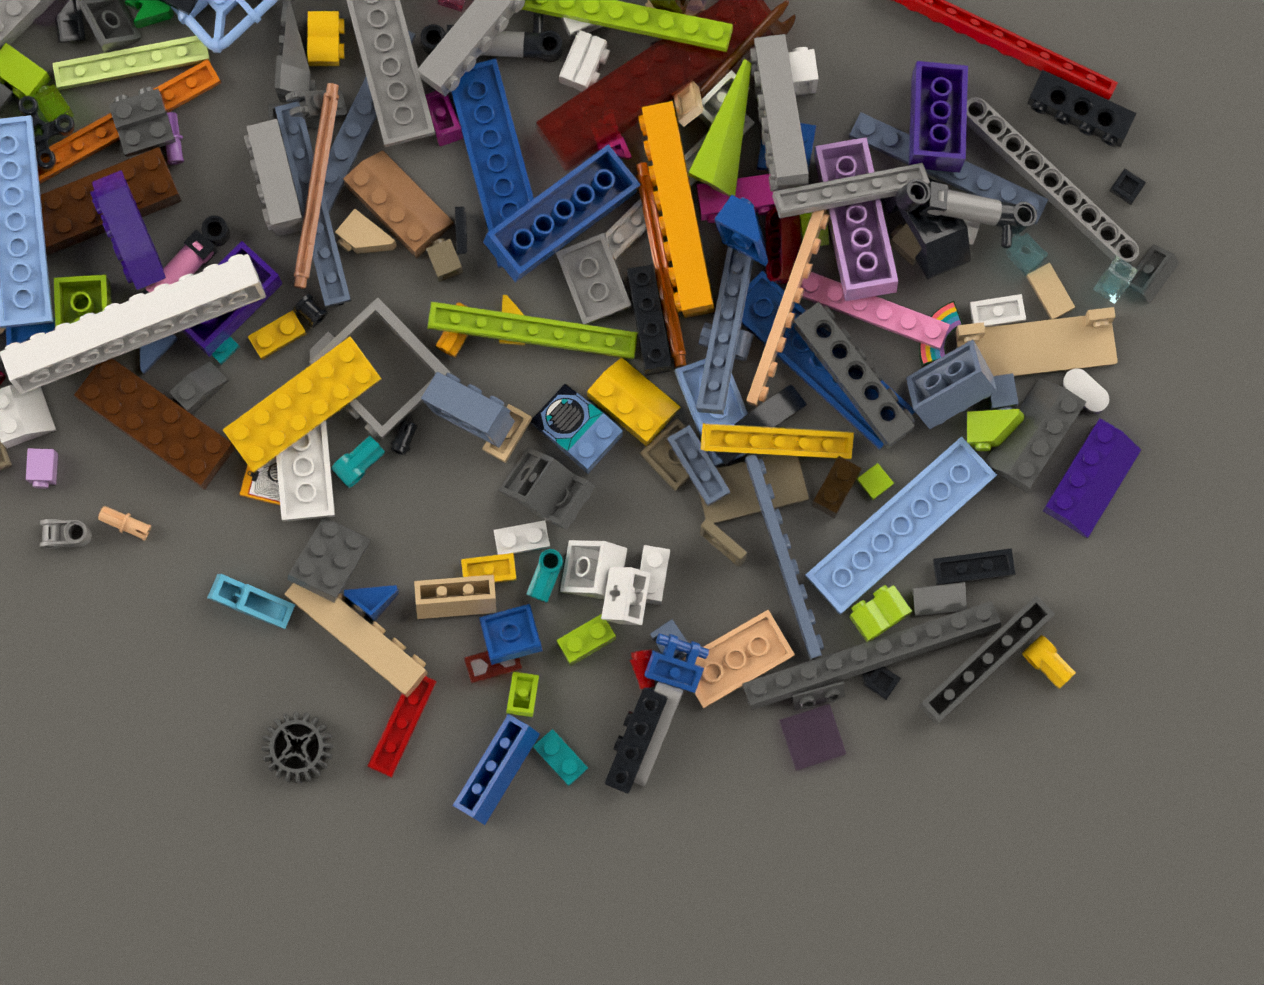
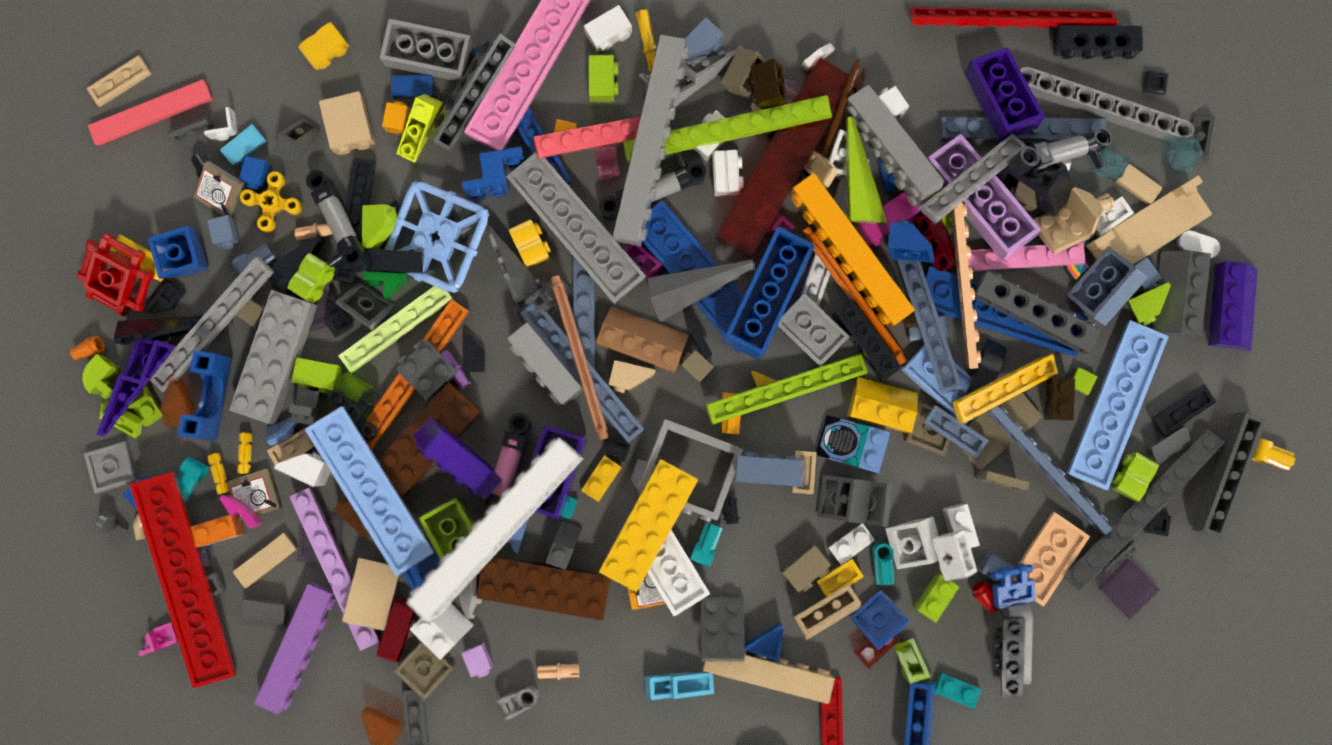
camera: 30 degrees left, 5 degrees up
(64, 393) = (468, 598): none -> light grey slope
(201, 133) = (472, 355): none -> black tile
(456, 540) = (806, 569): none -> dark tan brick
(466, 165) = (678, 290): none -> dark grey wedge
(948, 296) = (1074, 221): none -> tan plate

